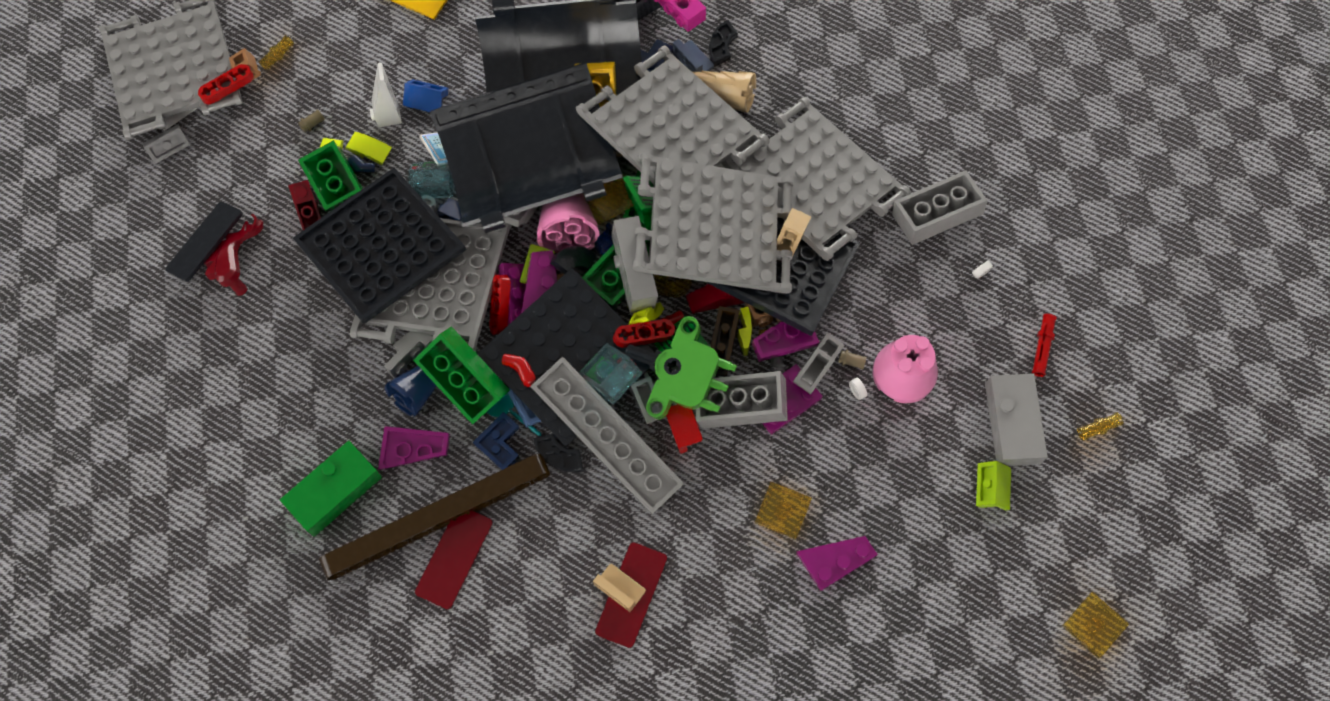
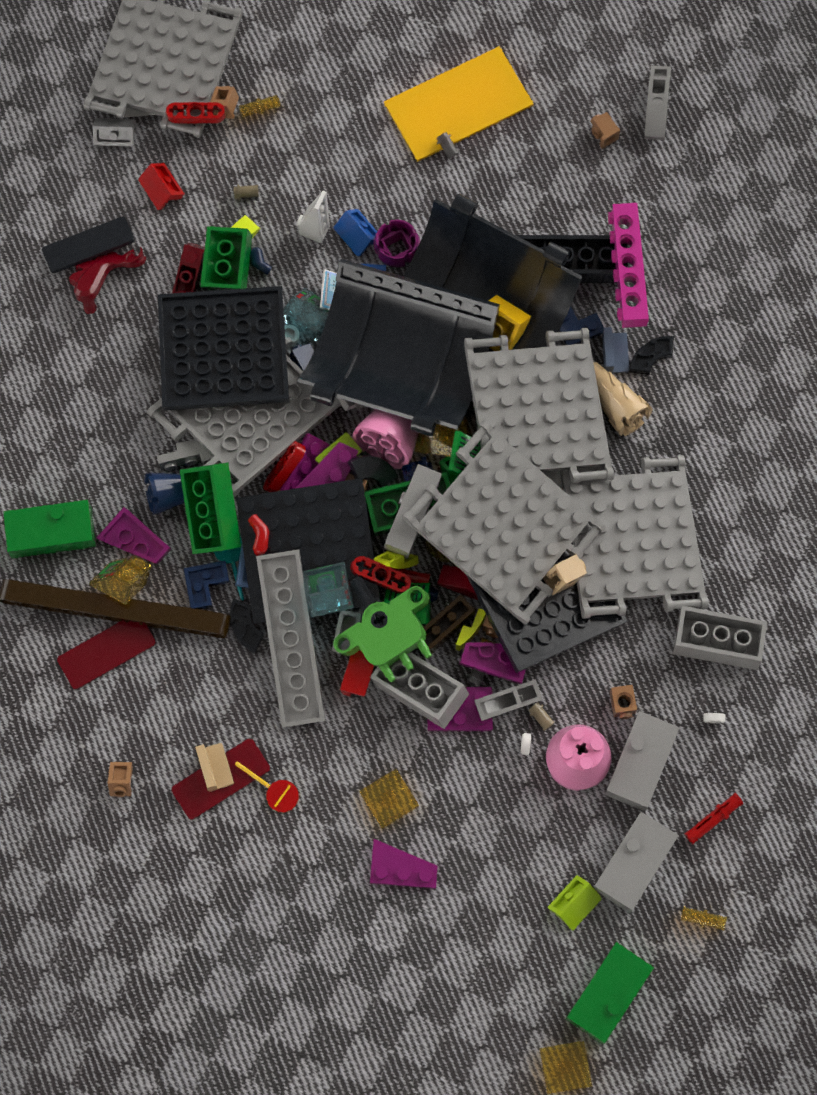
camera: 35 degrees right, 5 degrees up
(234, 159) = (160, 185): none -> red panel
(369, 147) = (276, 249): neon yellow slope -> none
(425, 484) = (122, 578): none -> clear yellow slope
(463, 71) = (394, 232): none -> magenta piece
(545, 656) = (120, 779): none -> medium nougat bracket
(692, 571) = (281, 794): none -> red piece
(905, 295) = (623, 692): none -> medium nougat brick
(957, 339) = (642, 761): none -> light grey brick
(1081, 538) = (609, 993): none -> green brick

